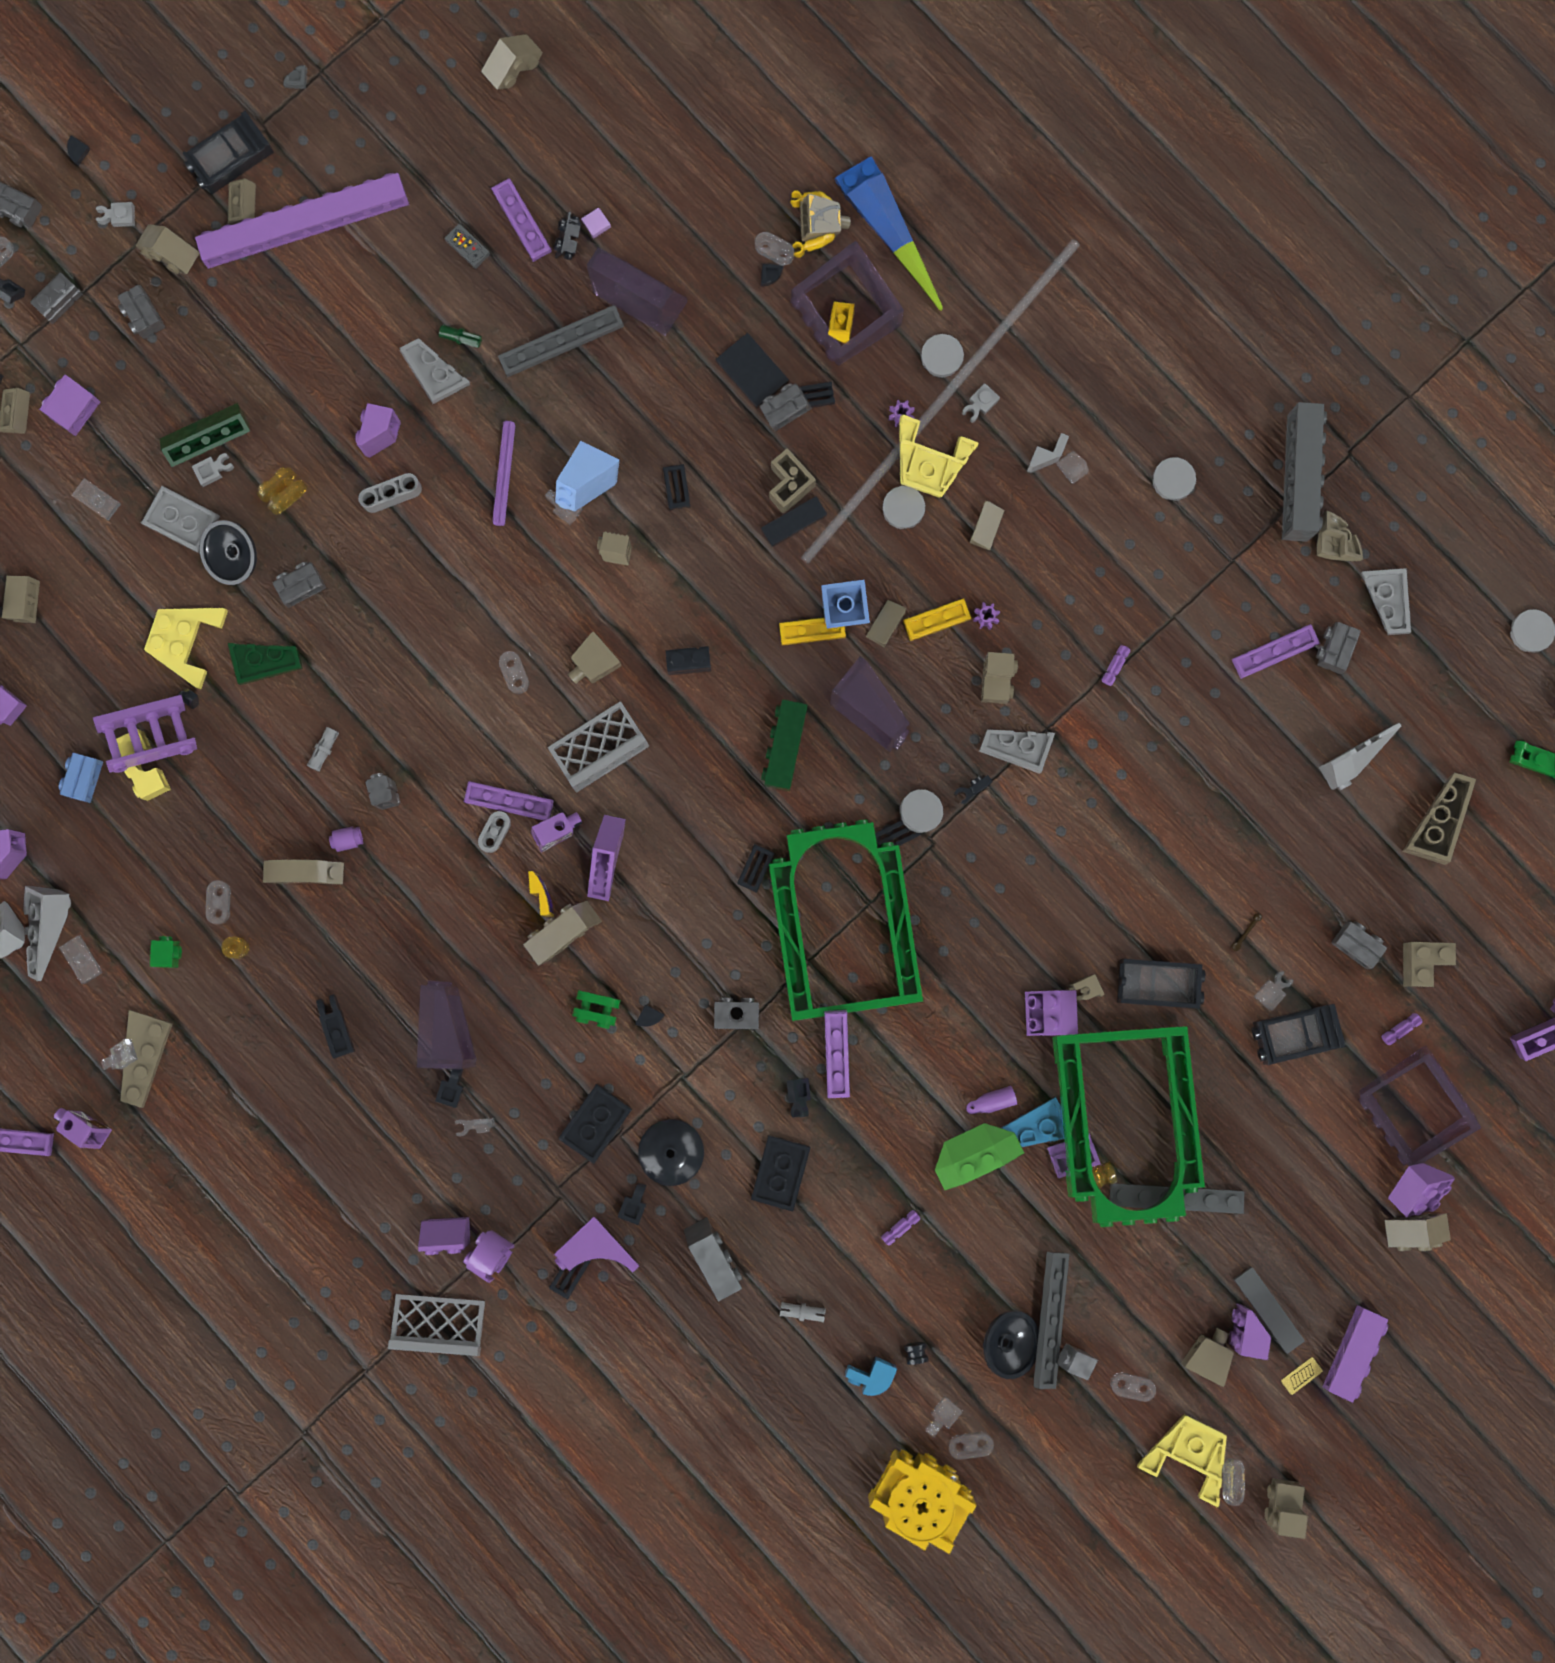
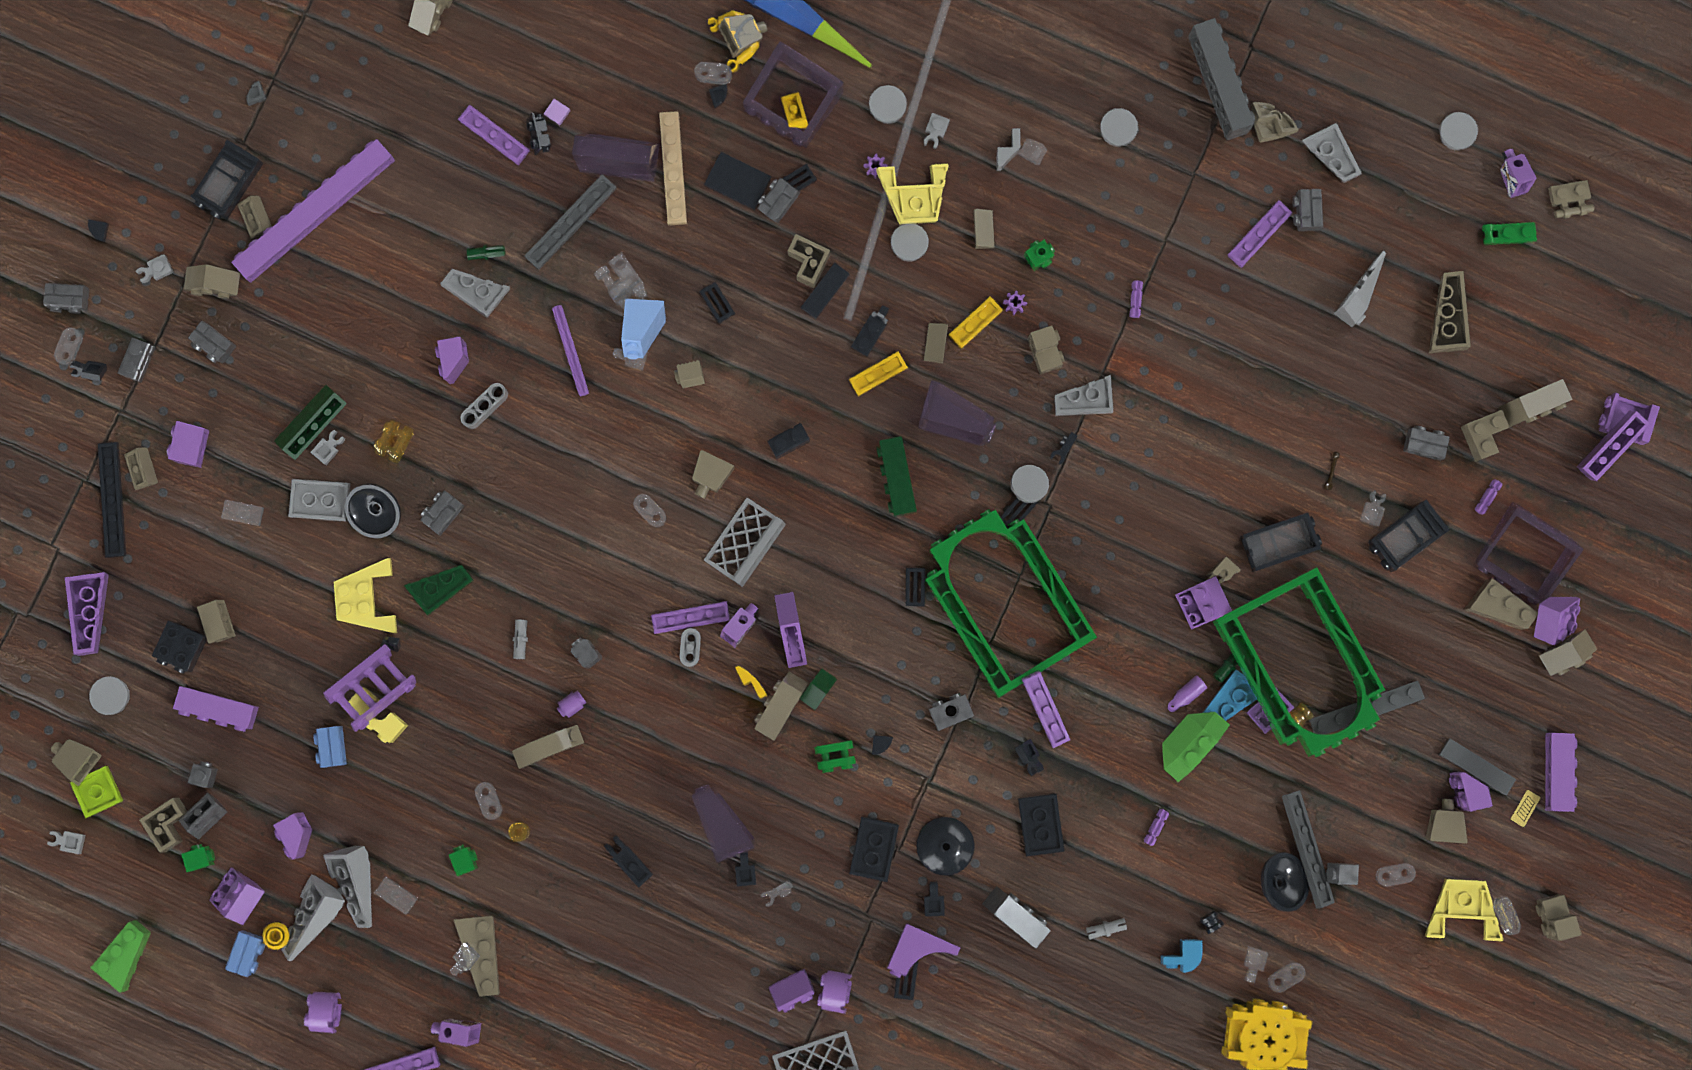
camera: 25 degrees left, 0 degrees up
(467, 246) = (458, 175): dark grey tile -> none
(591, 429) = (626, 285): none -> clear hips
(609, 931) = (818, 689): none -> dark green slope
(691, 330) = (673, 168): none -> tan plate
(811, 591) = (871, 332): none -> black hinge
(845, 604) = (896, 341): medium blue slope -> none
(1027, 575) = (1035, 259): none -> green brick
(1045, 1092) = (1226, 668): none -> dark green axle
(1367, 1150) = (1501, 605): none -> dark tan wedge
(1495, 952) = (1537, 402): none -> dark tan wedge

